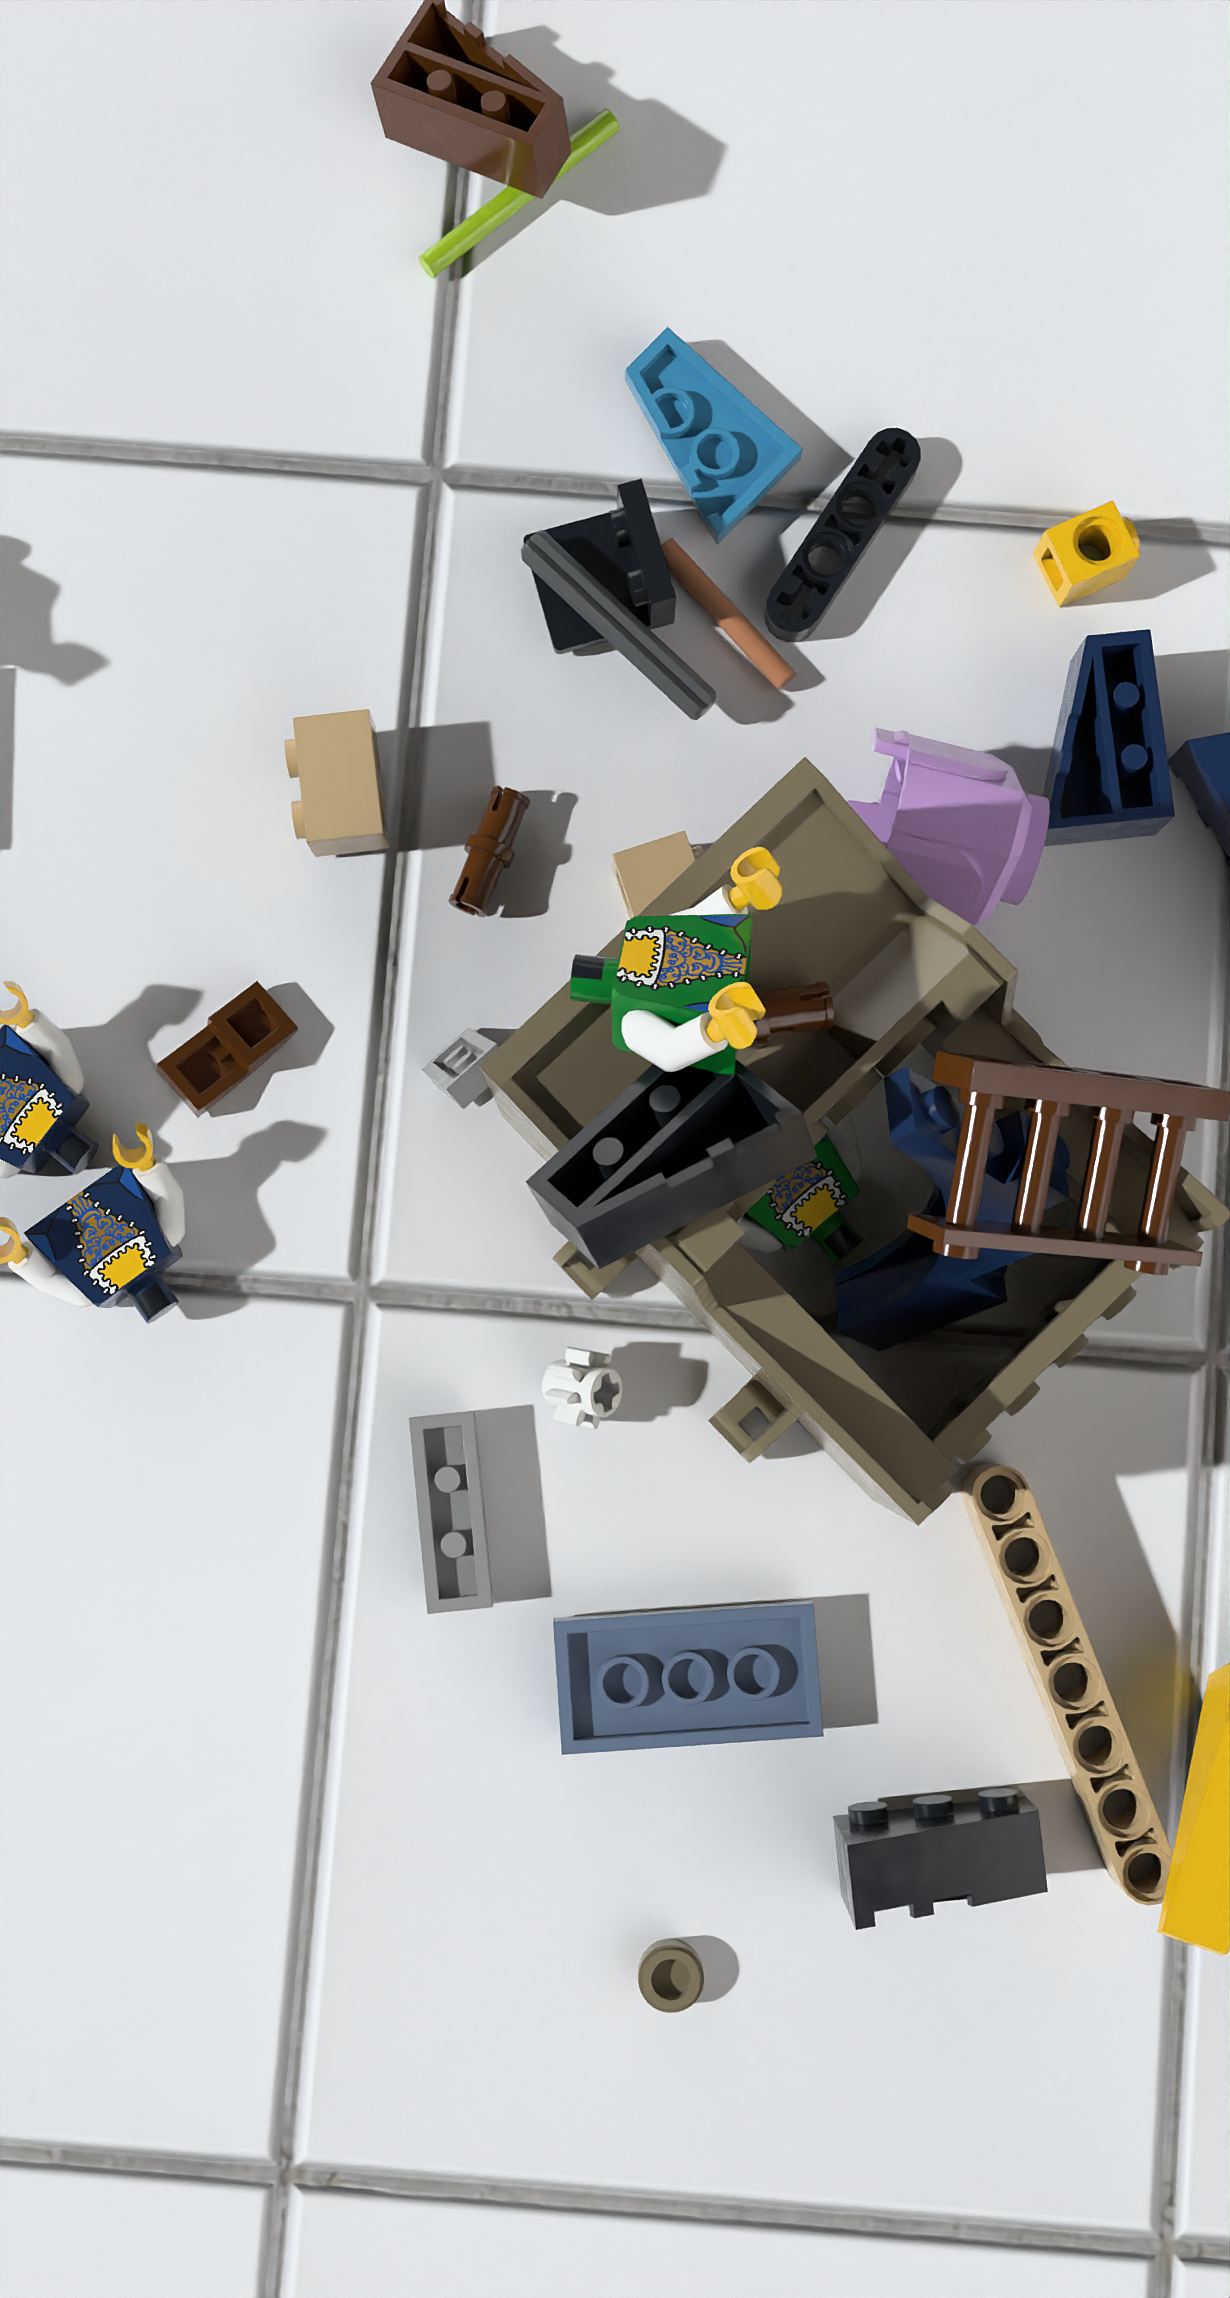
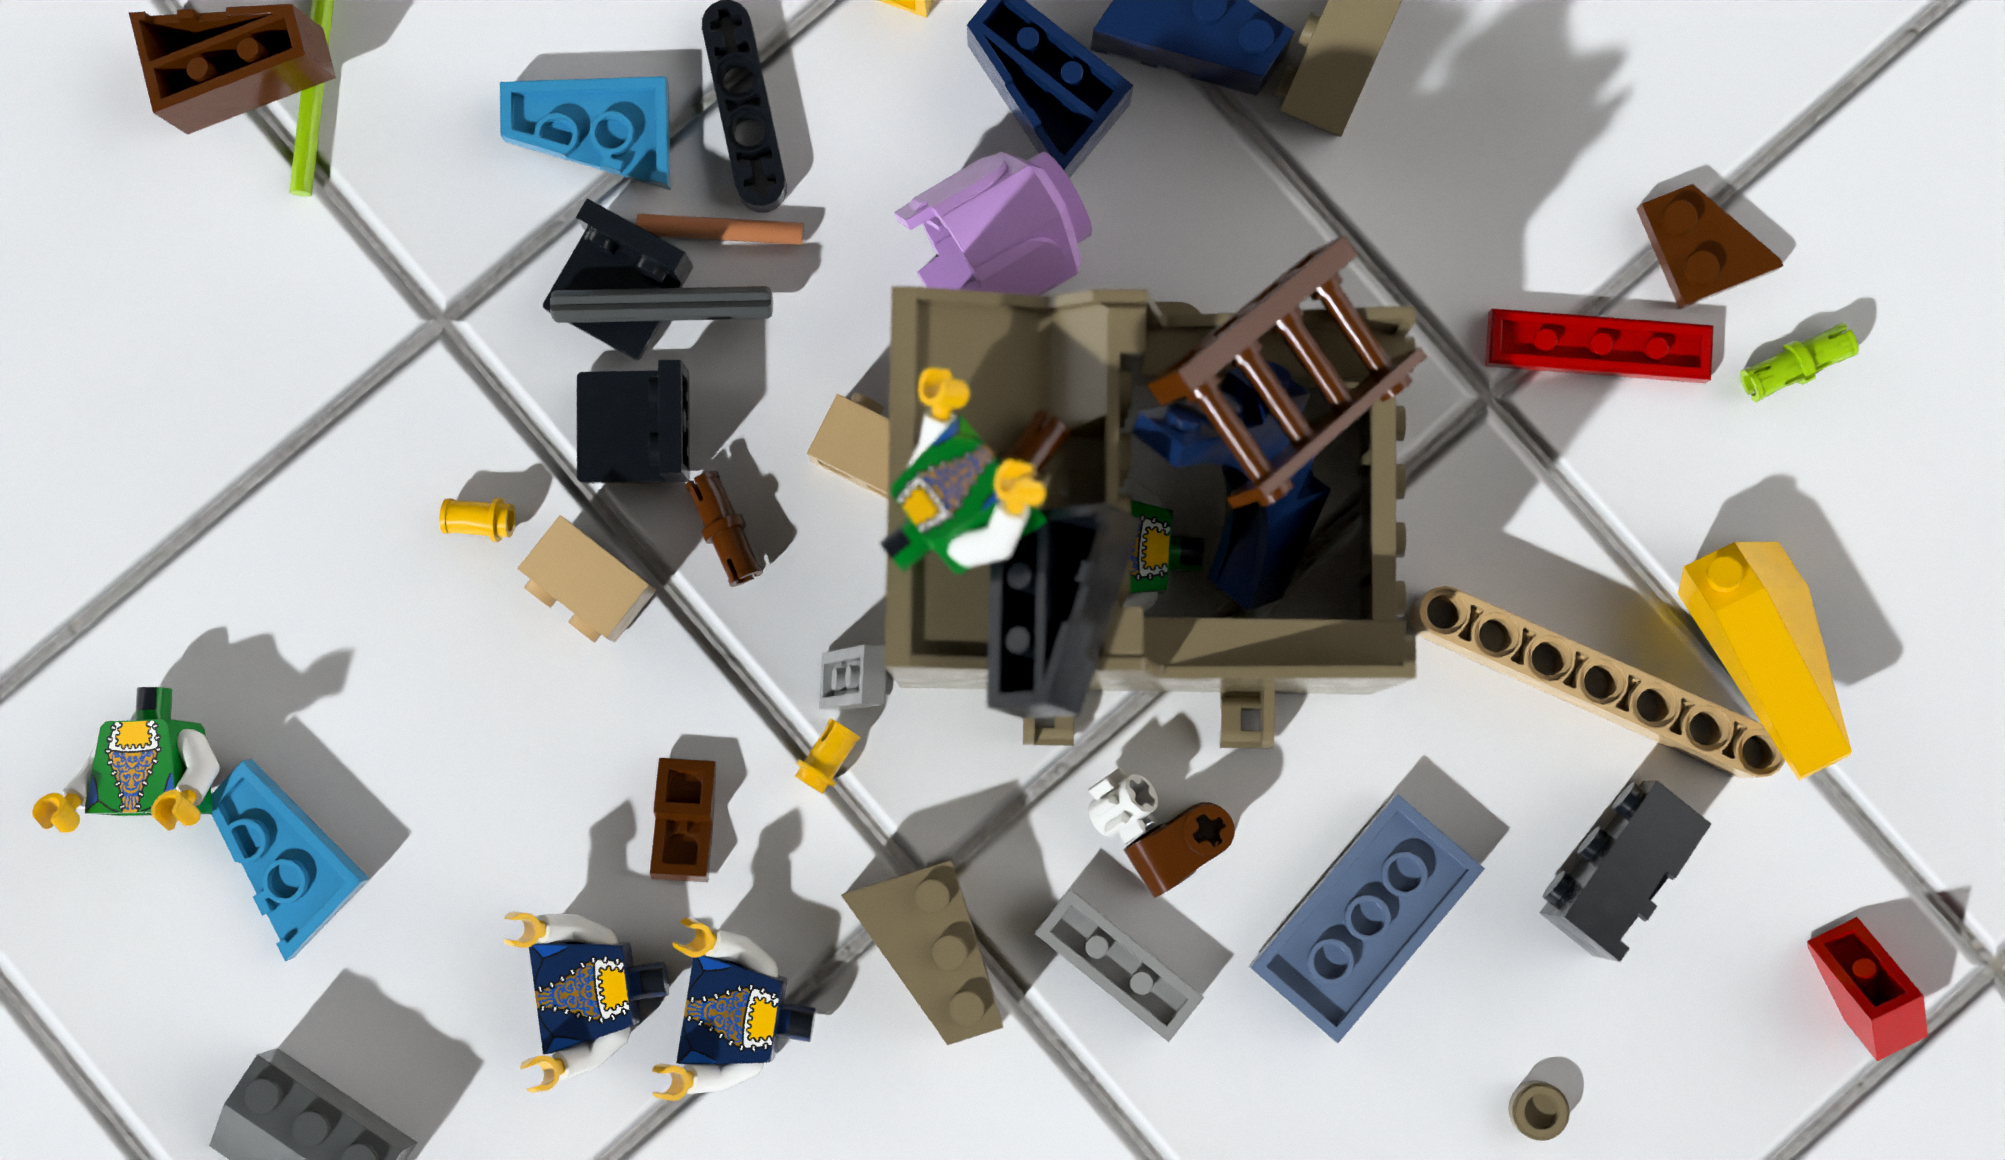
camera: 45 degrees left, 0 degrees up
(316, 1347) = (932, 946): none -> dark tan wedge
(317, 665) = (478, 518): none -> yellow pin
(388, 1112) = (826, 756): none -> yellow pin
(502, 701) = (634, 425): none -> black bracket
(583, 1464) = (1171, 853): none -> reddish brown piece
(1043, 2160) = (1869, 989): none -> red slope

